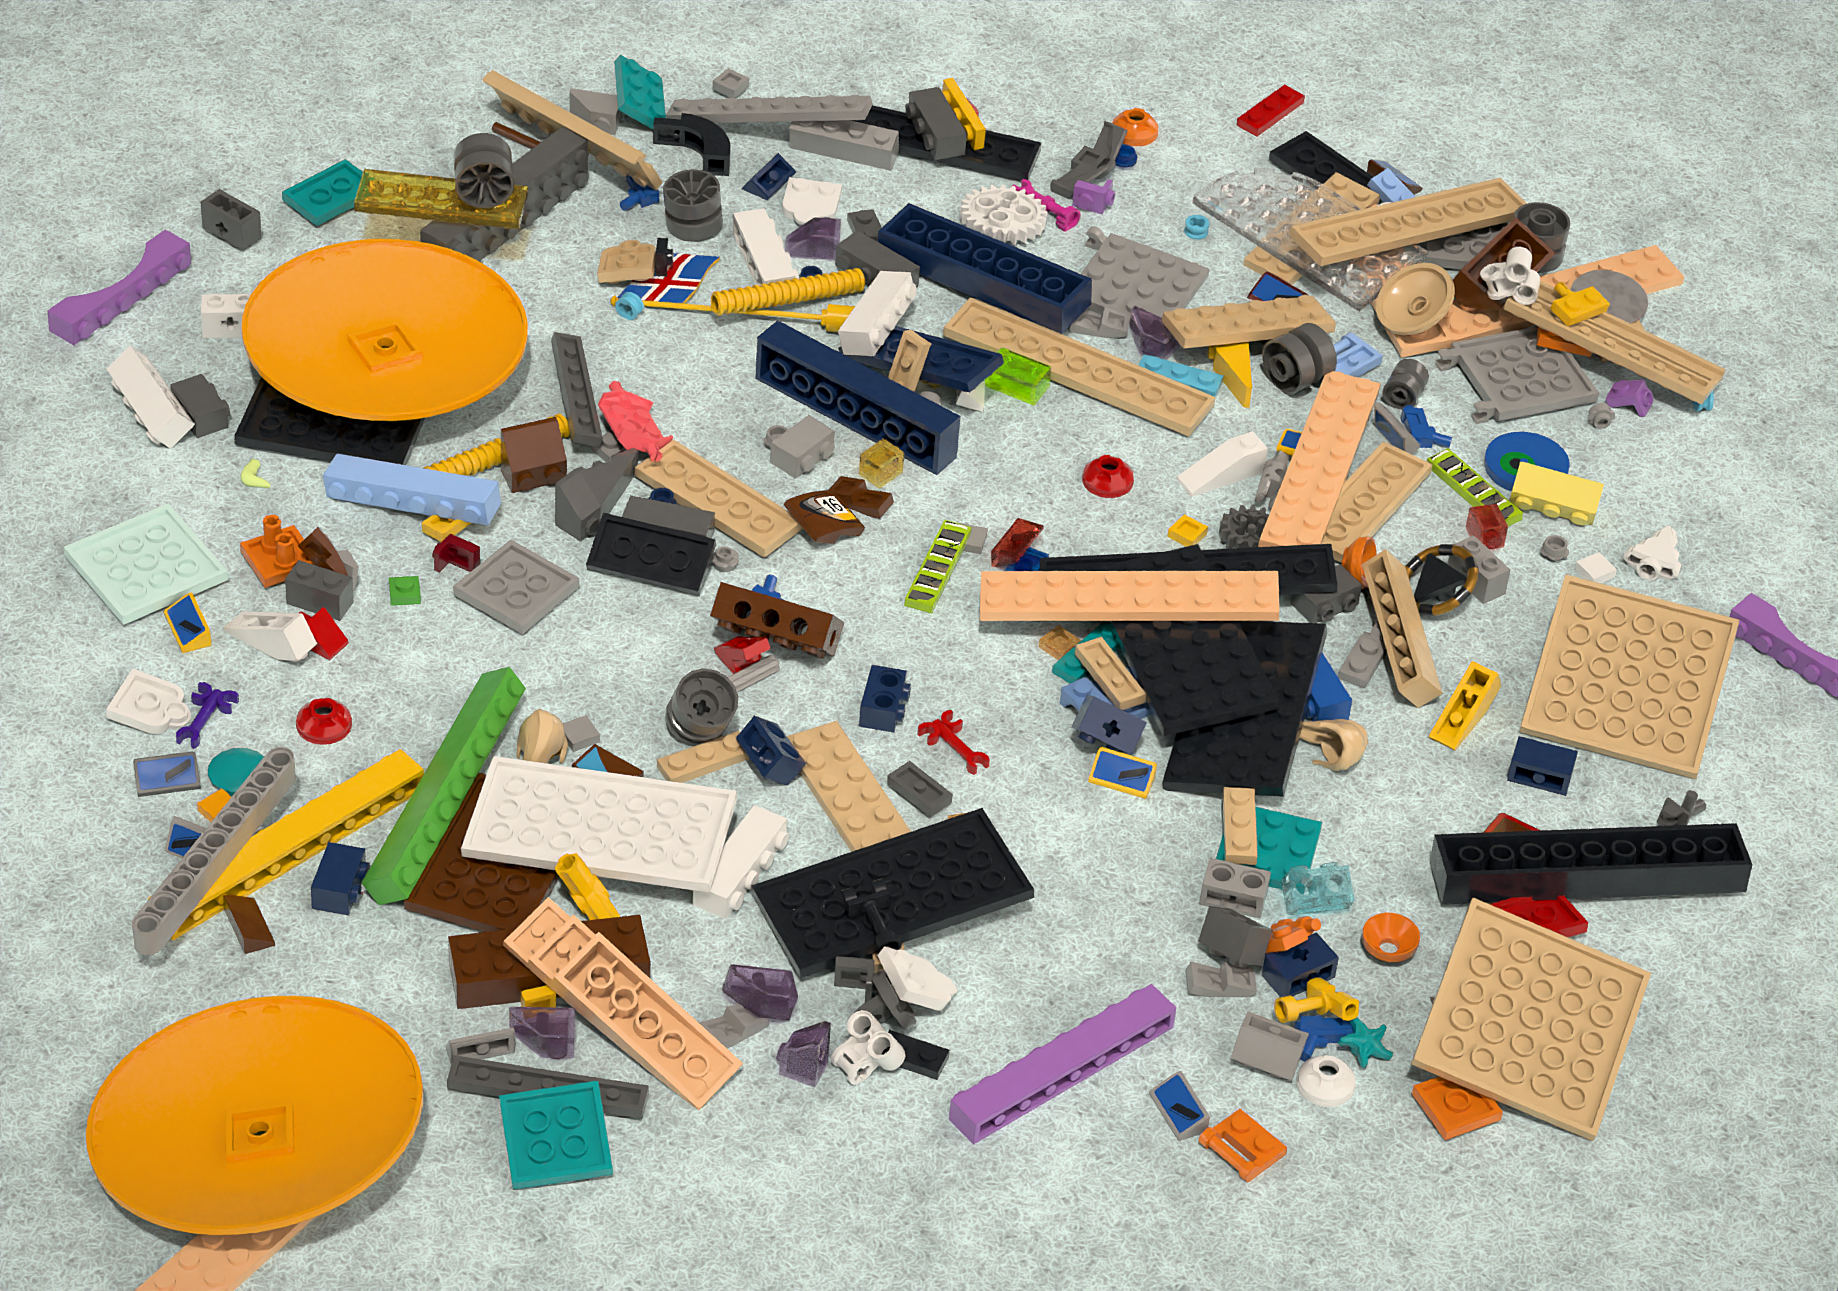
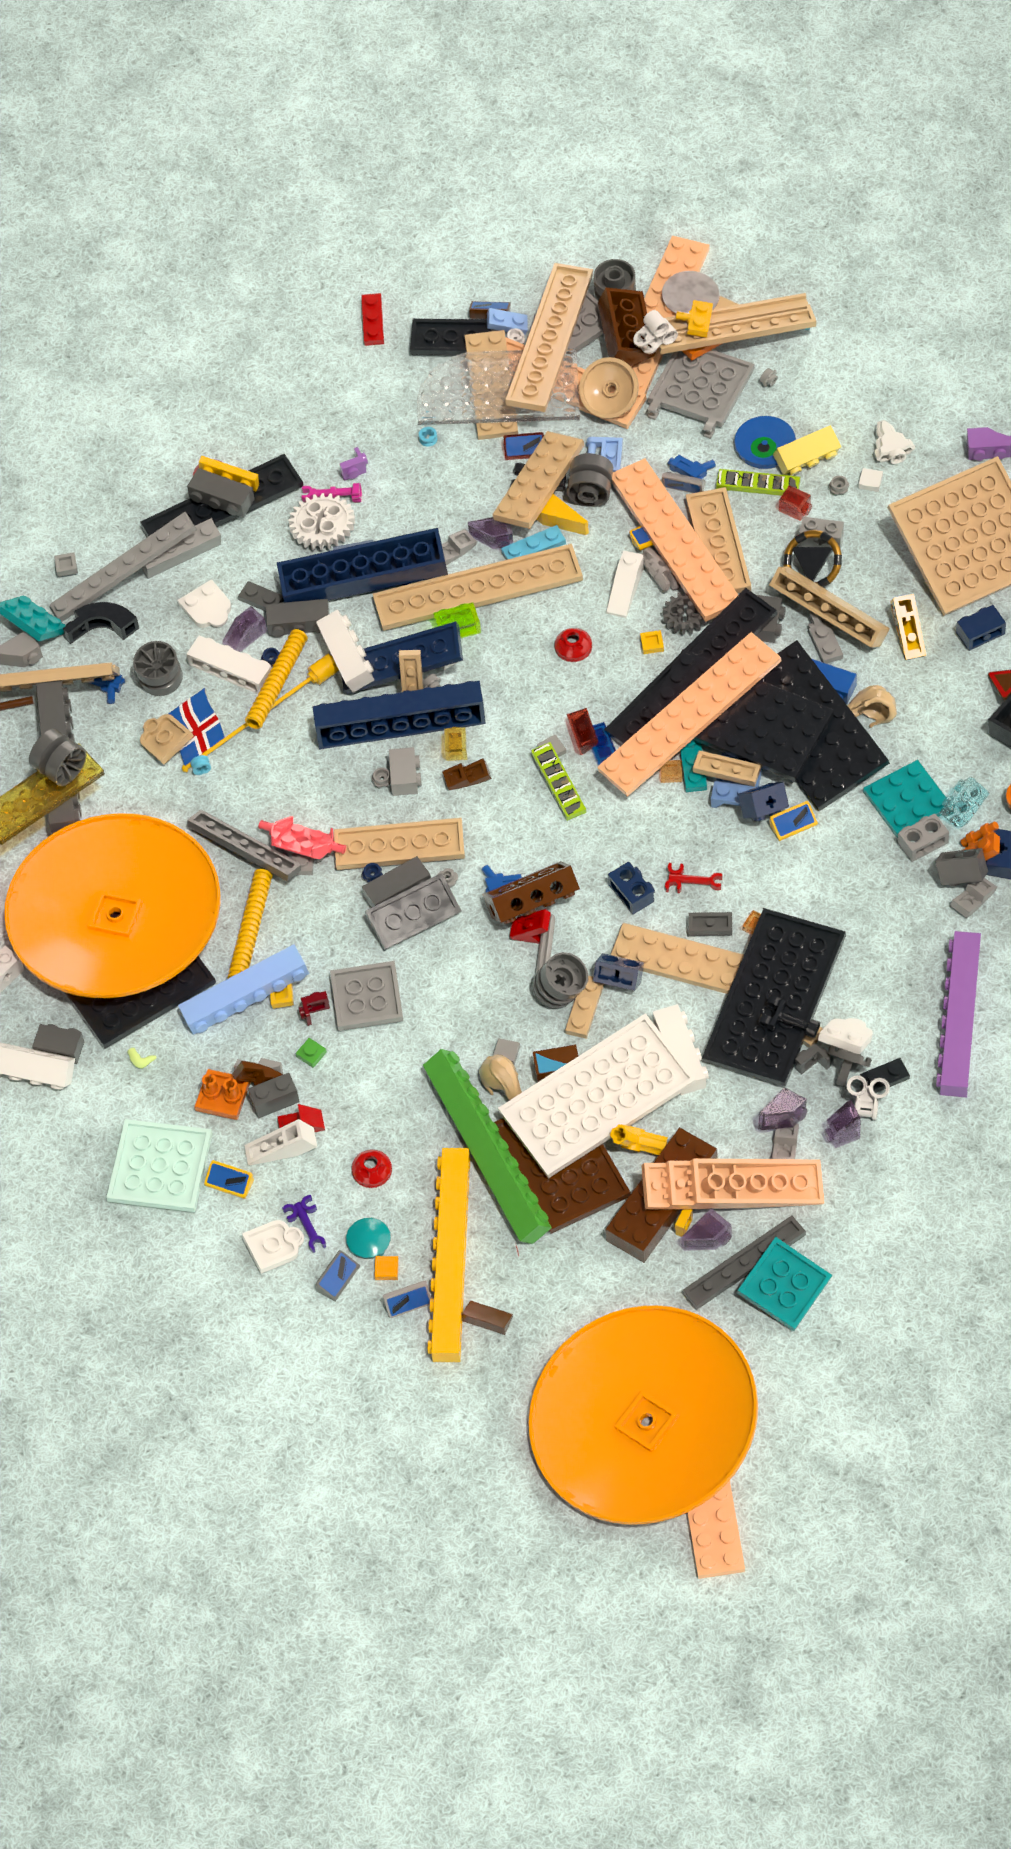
camera: 35 degrees left, 15 degrees up
(213, 851) = (435, 1303): light grey beam -> none
(339, 878) = (502, 1249): dark blue brick -> none
(483, 1045) = (684, 1271): light grey slope -> none
(532, 455) = (280, 910): reddish brown slope -> none
(589, 492) = (341, 908): dark grey wedge -> none
(664, 257) = (182, 716): black plate -> none
(770, 178) = (164, 610): dark blue slope -> none
(824, 516) = (468, 804): reddish brown slope -> none
(1090, 162) = (326, 442): dark grey plate -> none
(1126, 156) = (335, 422): clear blue plate -> none
(1139, 132) = (316, 403): orange piece -> none
(1139, 276) = (439, 499): light grey plate -> none
(1239, 825) = (888, 800): tan plate -> none
(1355, 555) = (761, 583): orange piece -> none
(1405, 384) = (655, 446): dark grey wheel -> none
(1631, 393) = (768, 350): medium lavender bracket -> none

